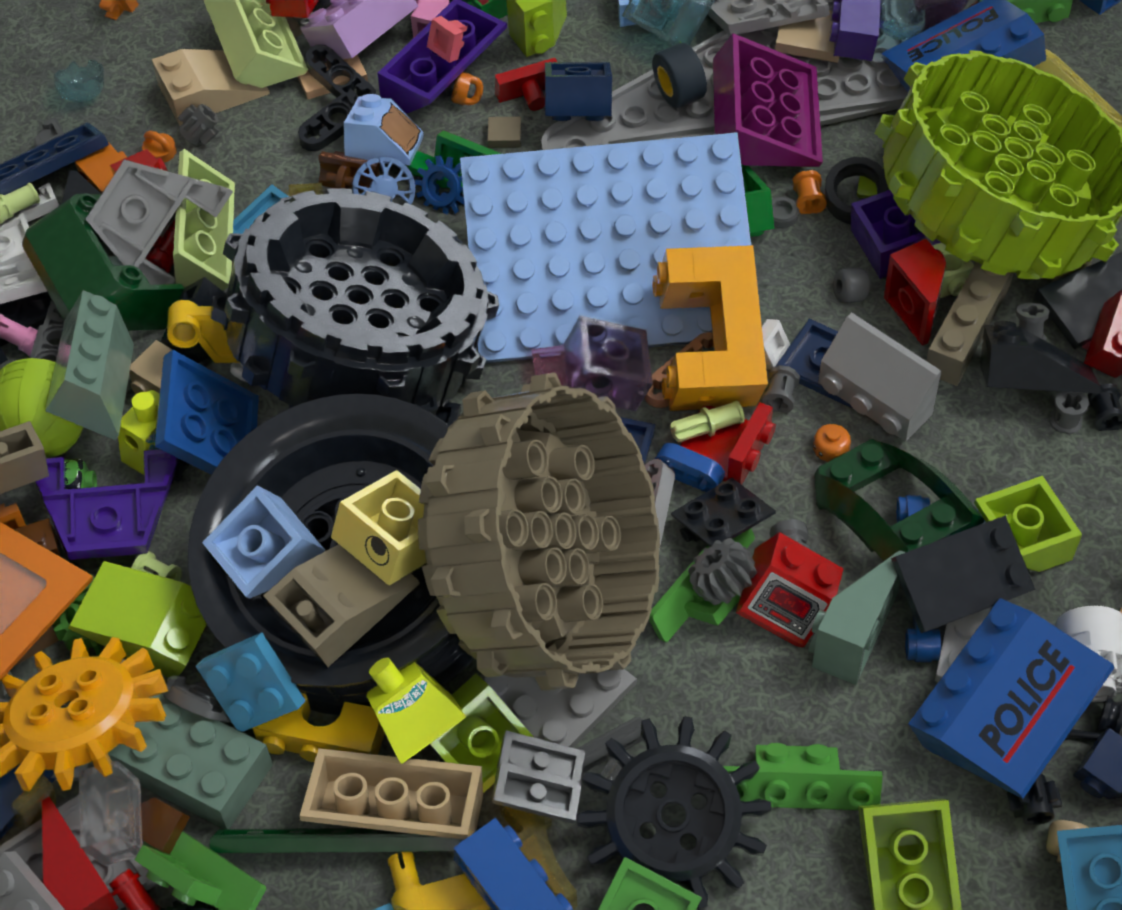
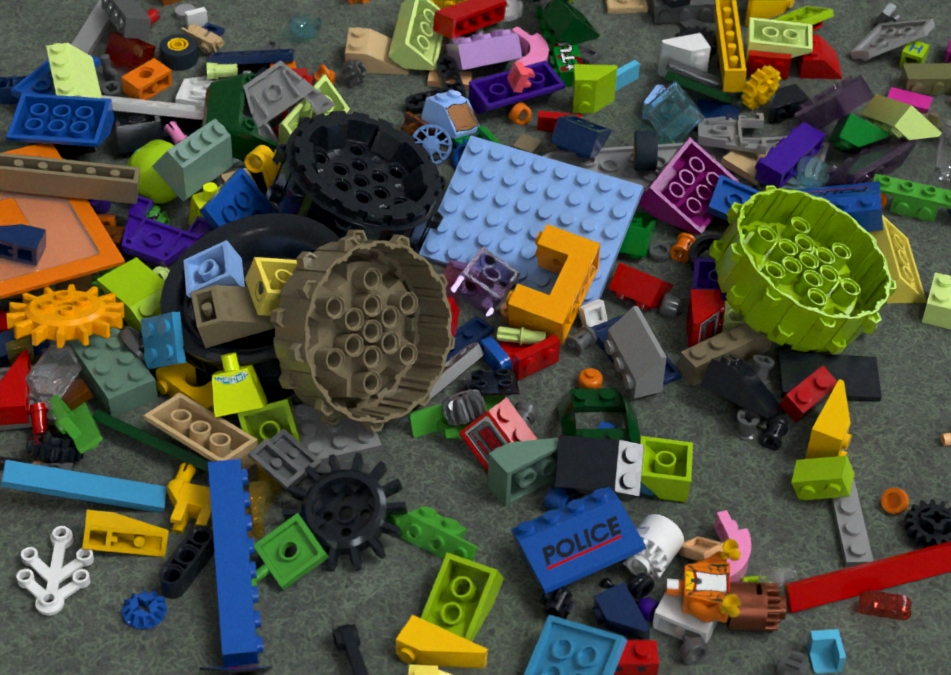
camera: 25 degrees right, 10 degrees down
(799, 275) = (638, 286): none -> red slope
(836, 100) = (725, 194): none -> blue plate

